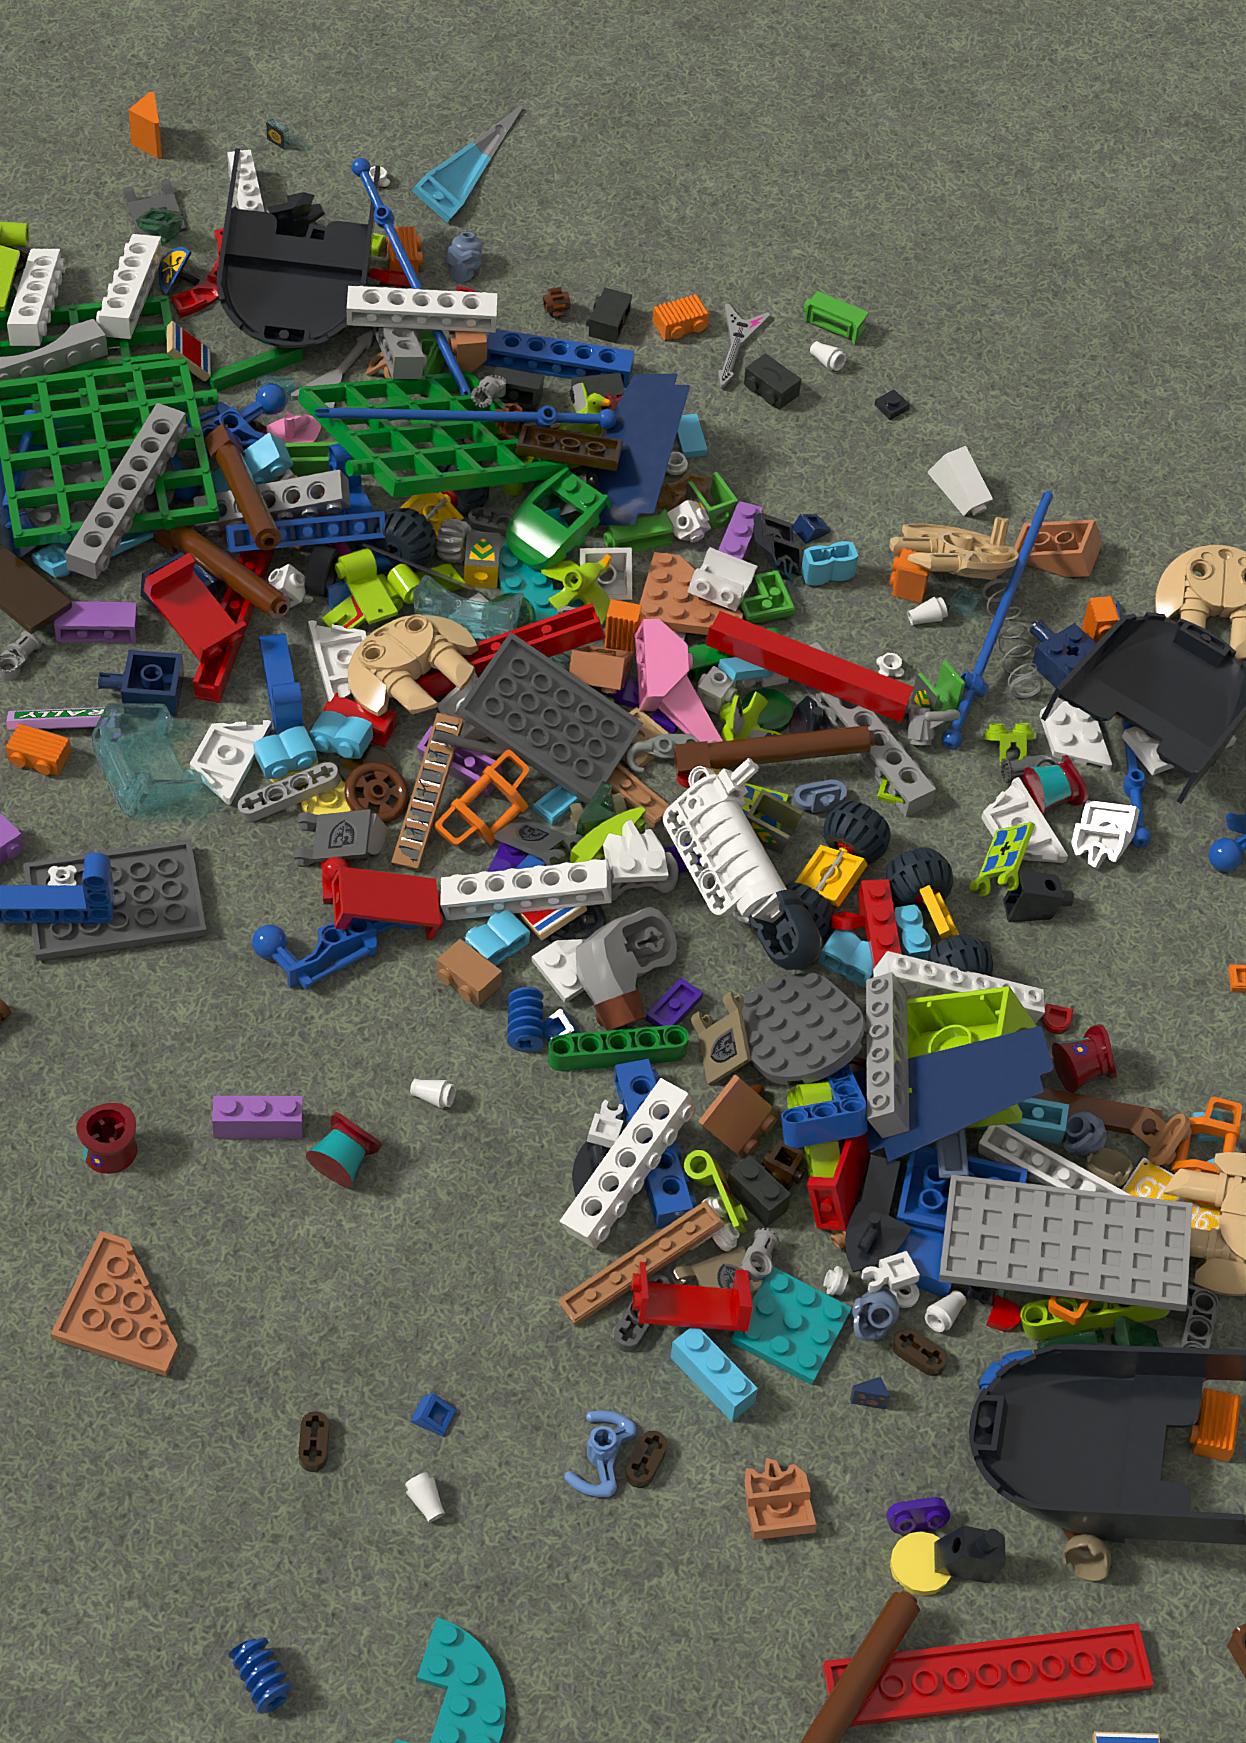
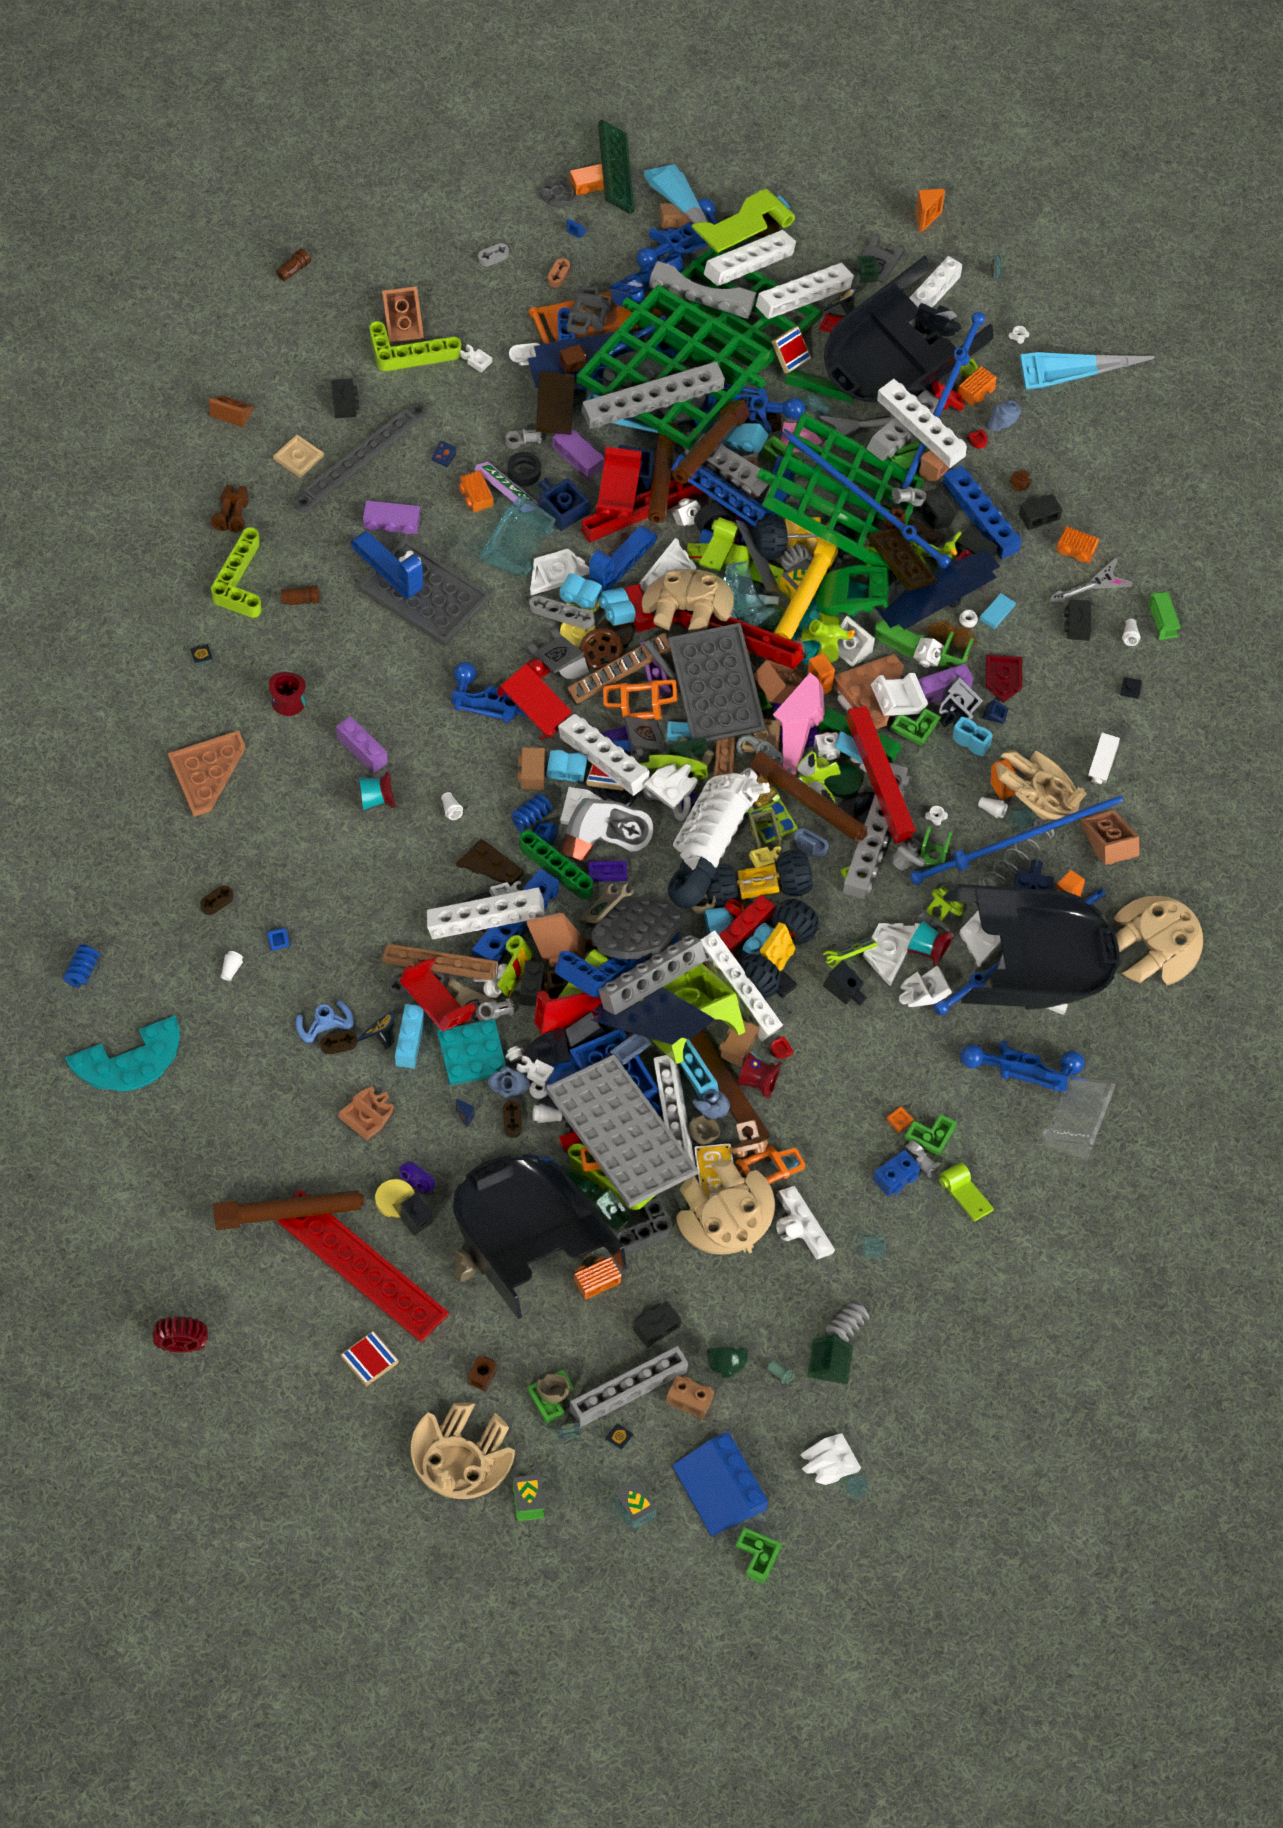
camera: 50 degrees right, 5 degrees up
(59, 669) = (526, 458): none -> black tyre
(486, 514) = (823, 559): none -> yellow brick
(544, 1112) = (488, 861): none -> dark brown wing
(671, 1396) = (381, 1029): none -> shield
(774, 488) = (1003, 675): none -> dark red tile
(799, 848) = (764, 857): none -> light yellow plate

